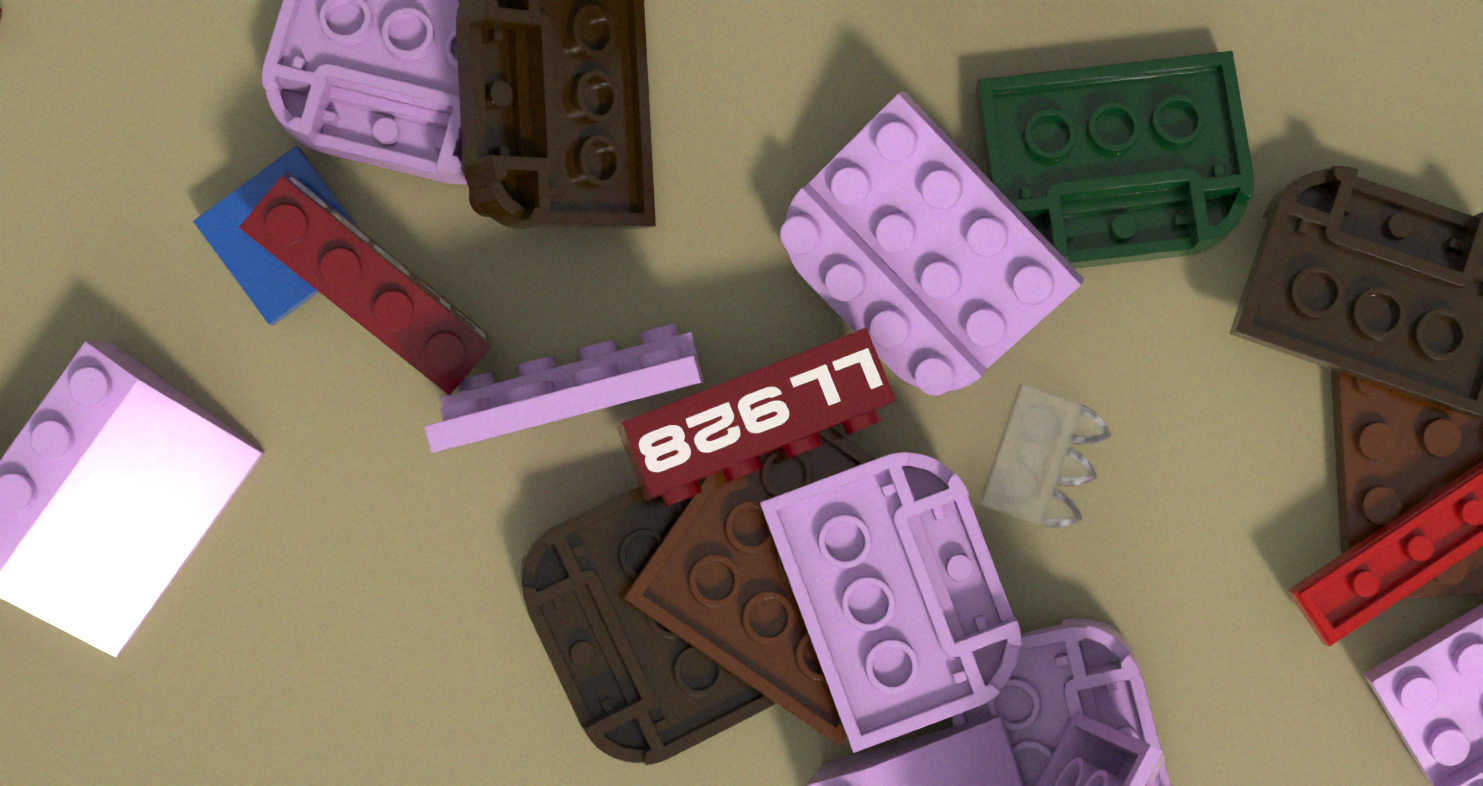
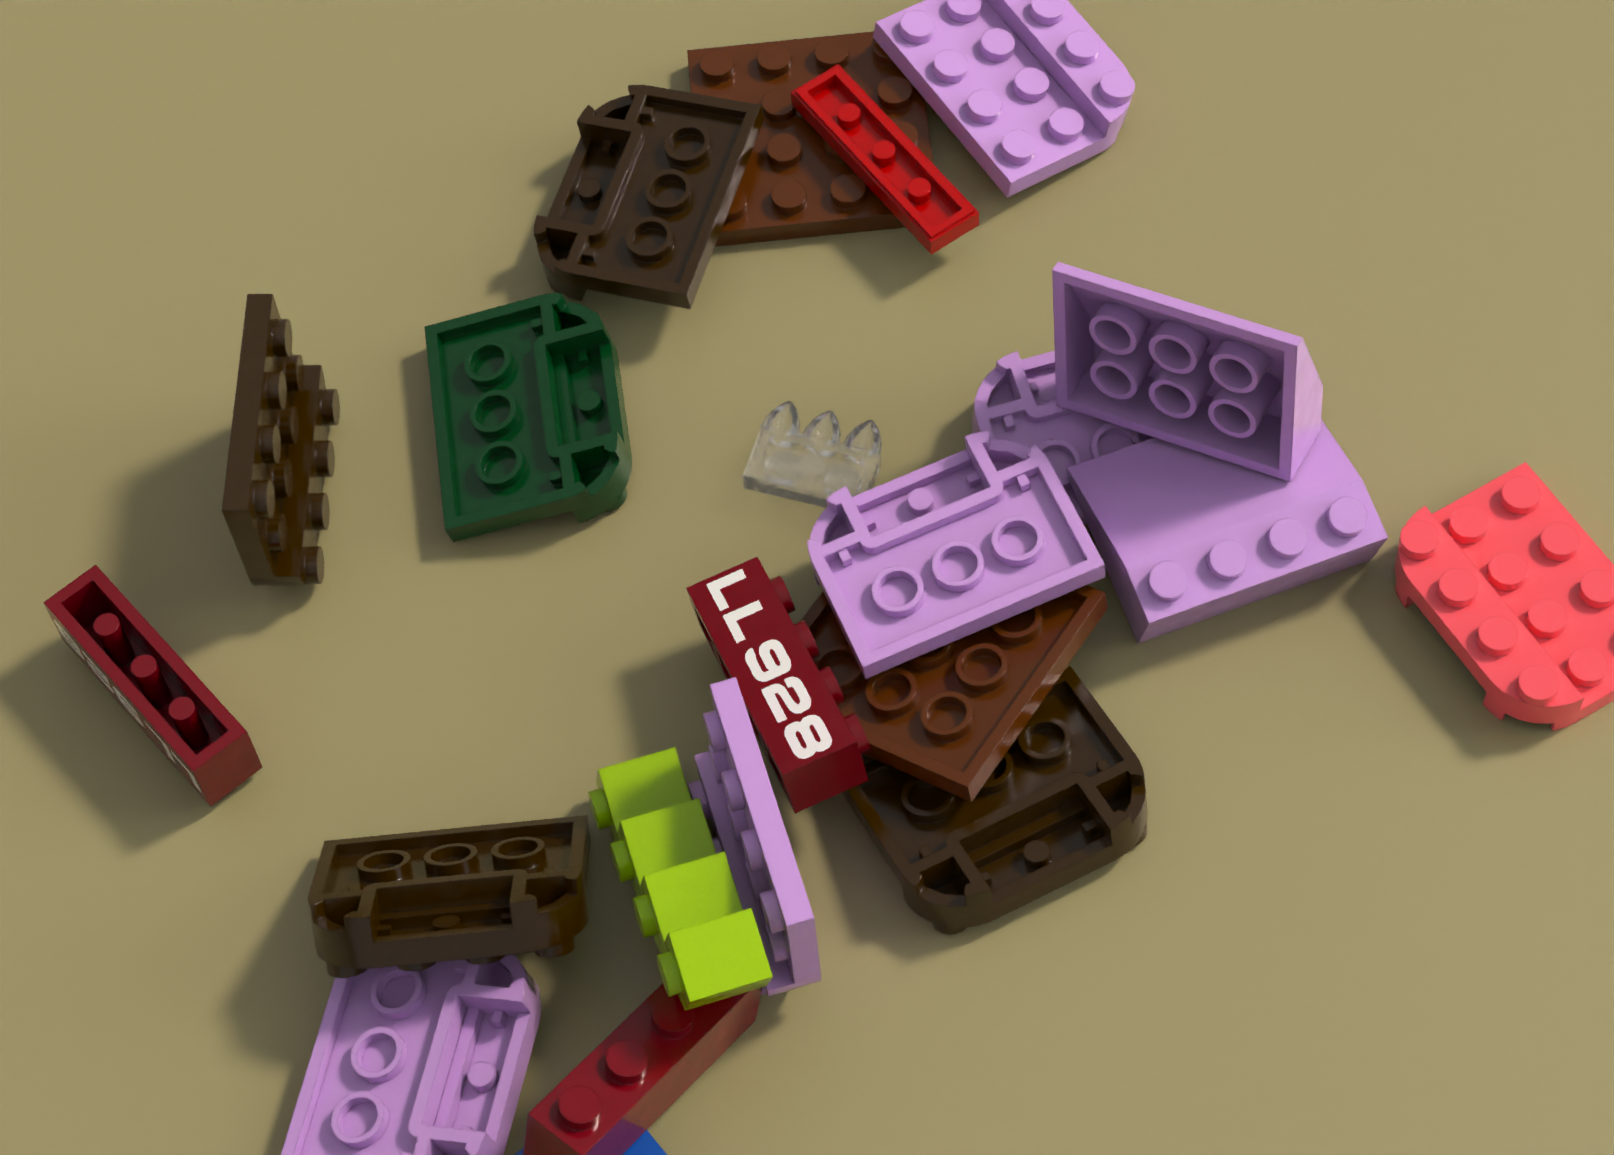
camera: 85 degrees left, 30 degrees down
(528, 321) = (679, 881): none -> lime brick
(923, 251) = (605, 558): lavender plate -> none

